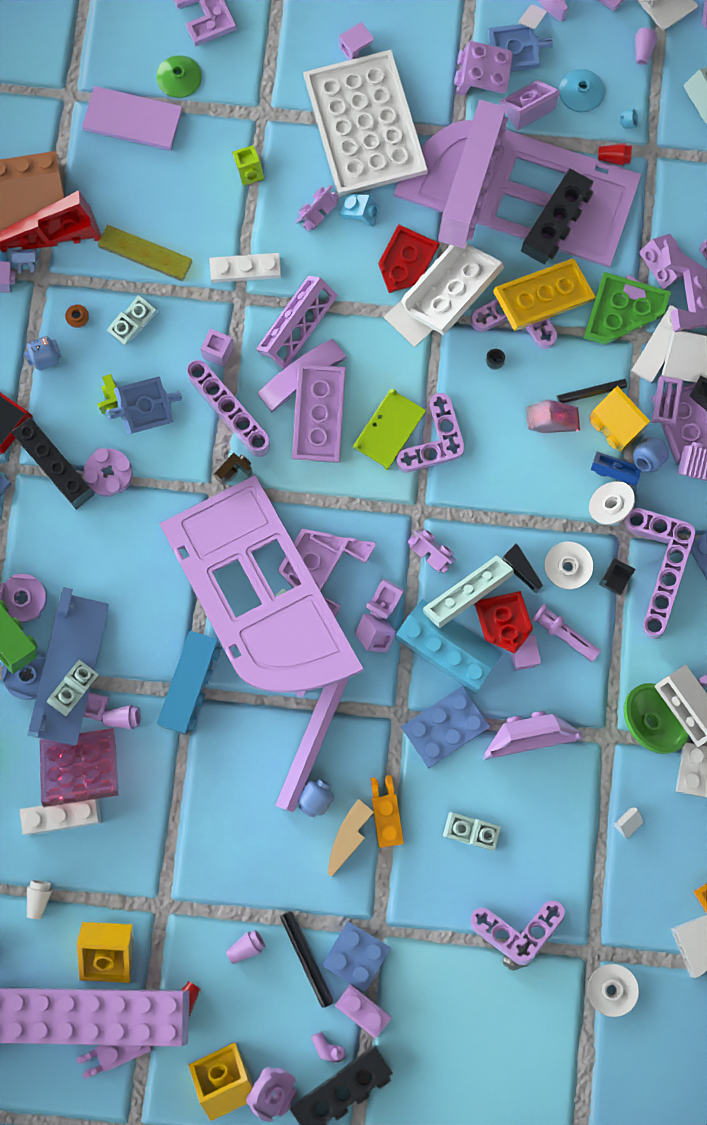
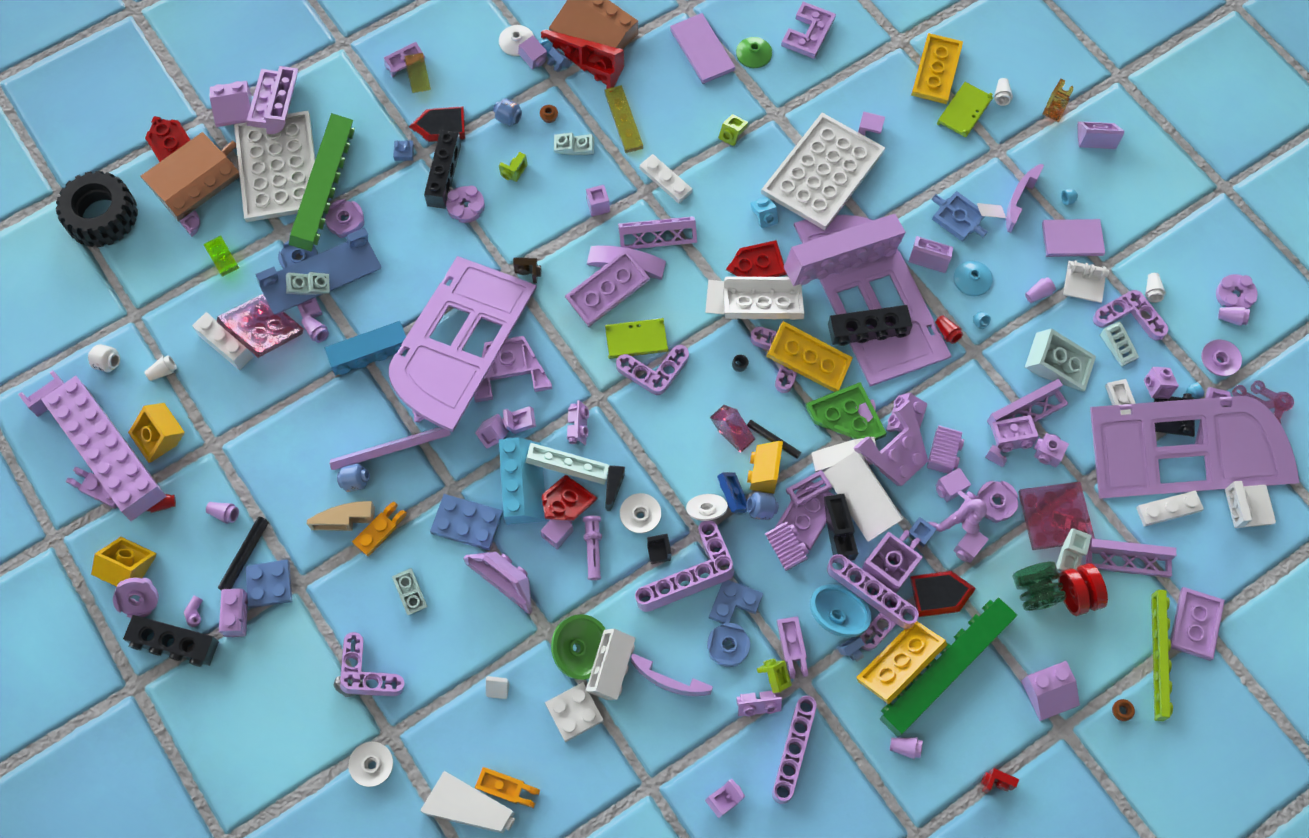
camera: 50 degrees right, 10 degrees down
(143, 405) = (522, 187): medium blue plate -> none
(223, 398) = (564, 244): lavender beam -> none
(310, 213) = (749, 186): lavender hinge -> none
(483, 68) = (926, 208): lavender bracket -> none

